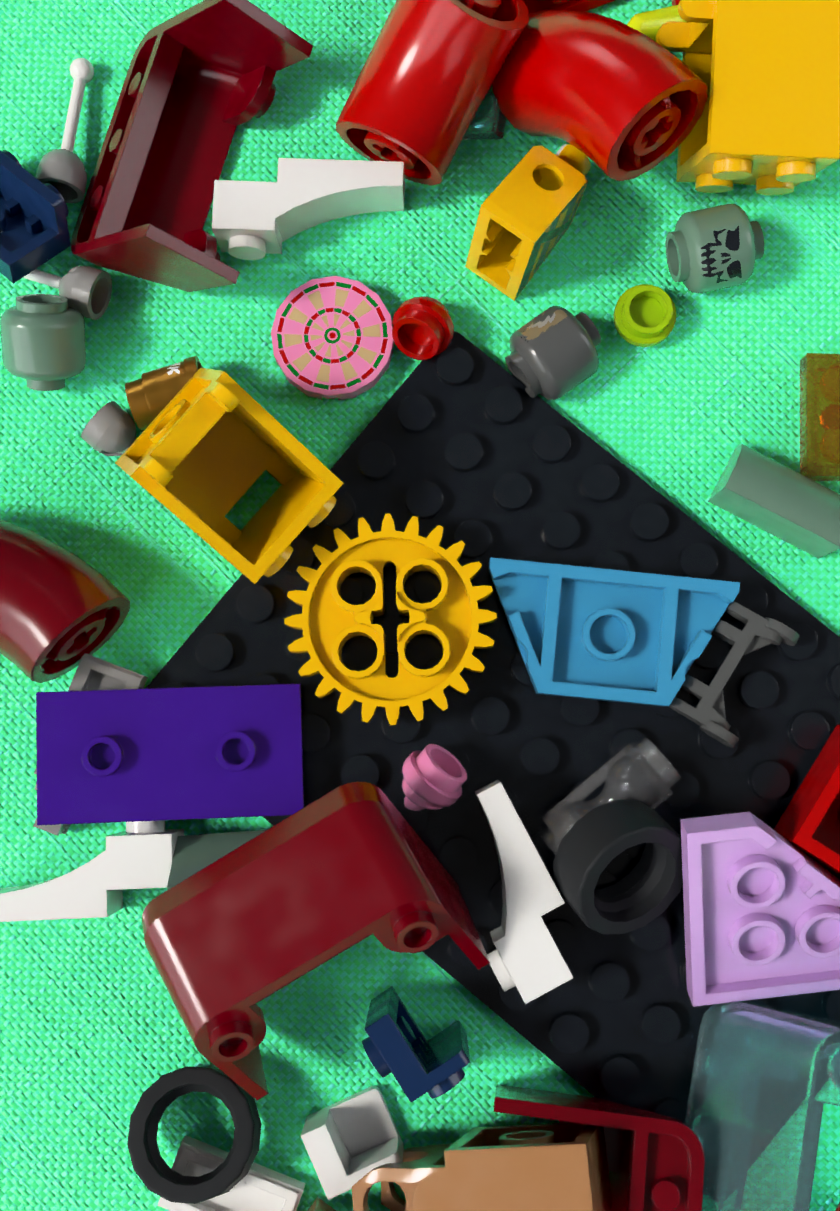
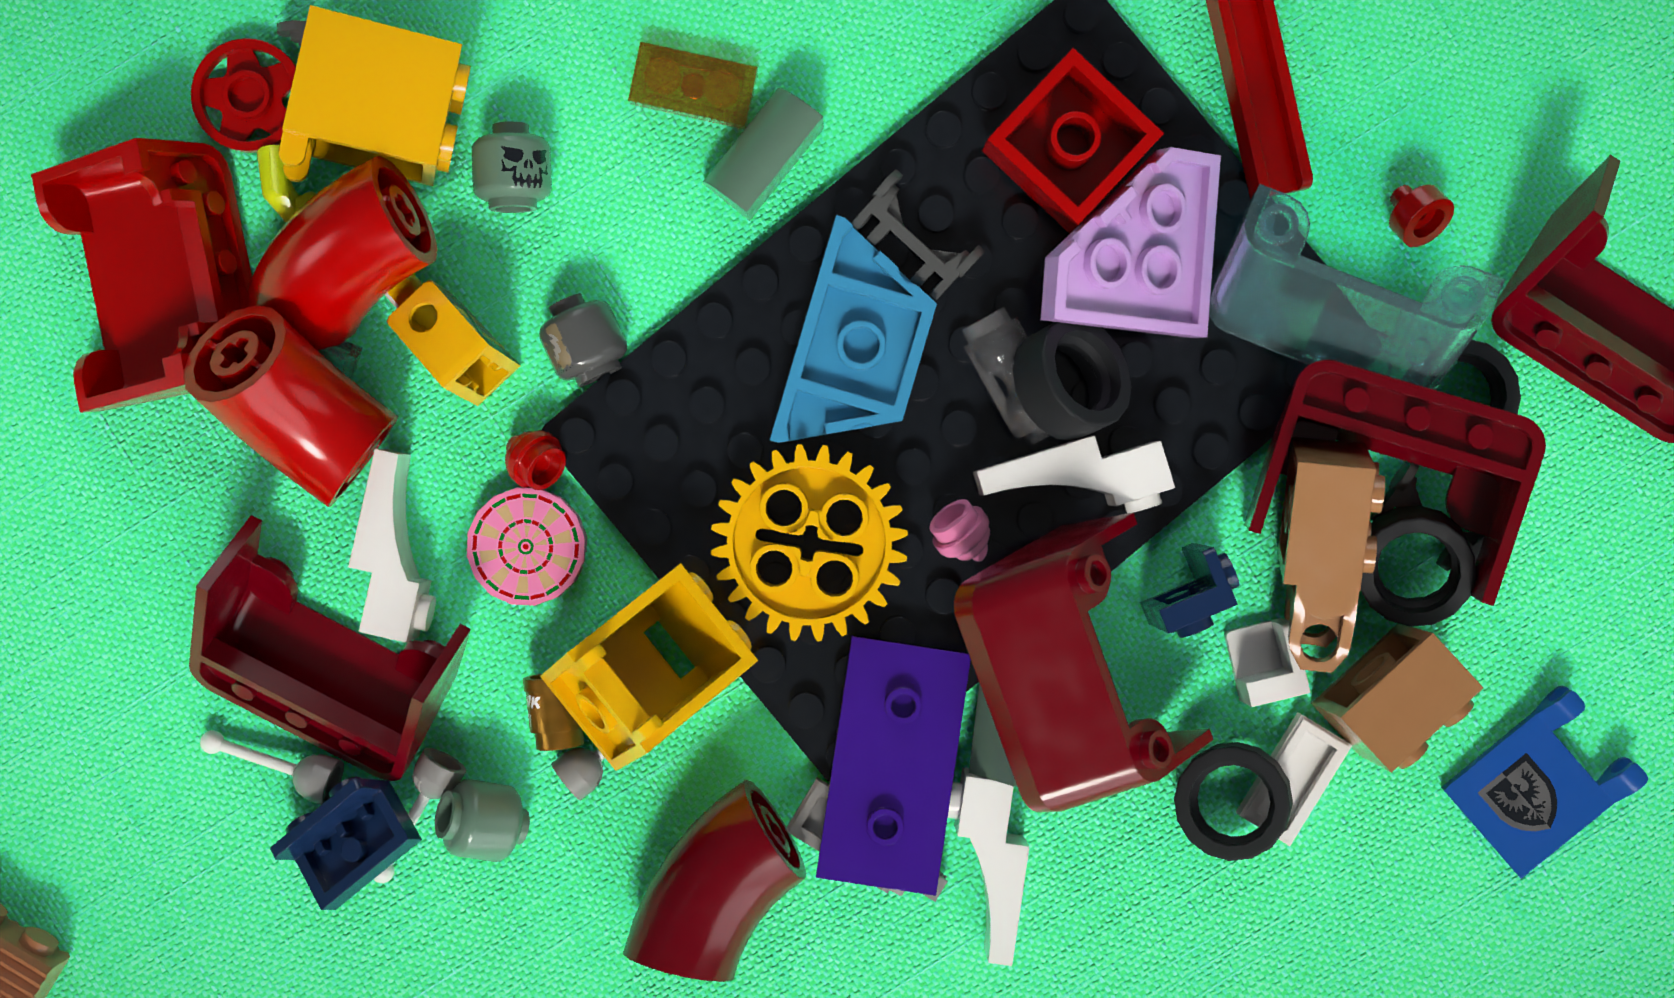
camera: 80 degrees left, 5 degrees up
(644, 315) = (561, 245): lime plate -> none

